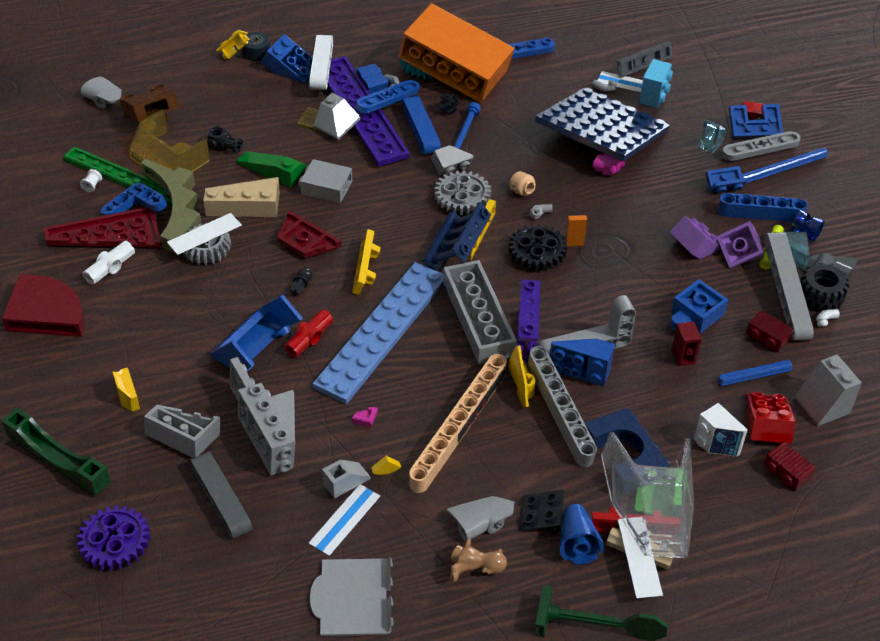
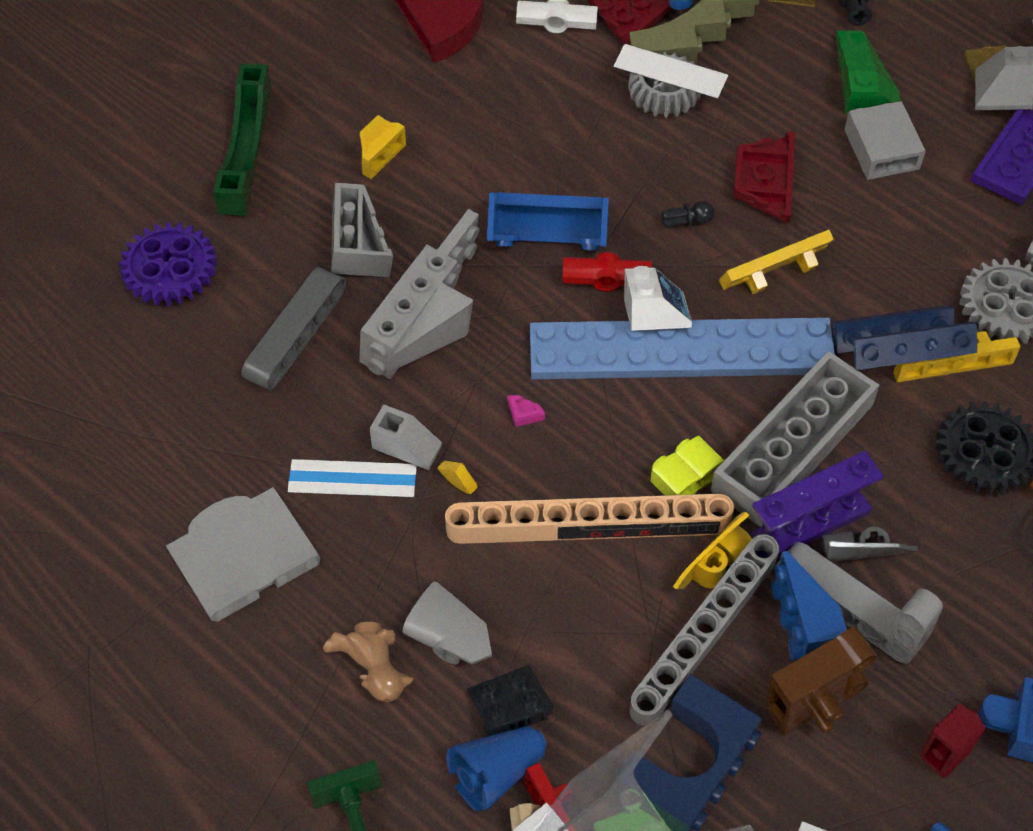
camera: 60 degrees right, 10 degrees up
(243, 199) = (772, 77): tan wedge -> none
(347, 323) = (654, 301): none -> white slope
(461, 365) = (686, 469): none -> neon yellow brick
(556, 321) = (841, 546): none -> dark grey panel
(628, 373) = (819, 683): none -> reddish brown piece

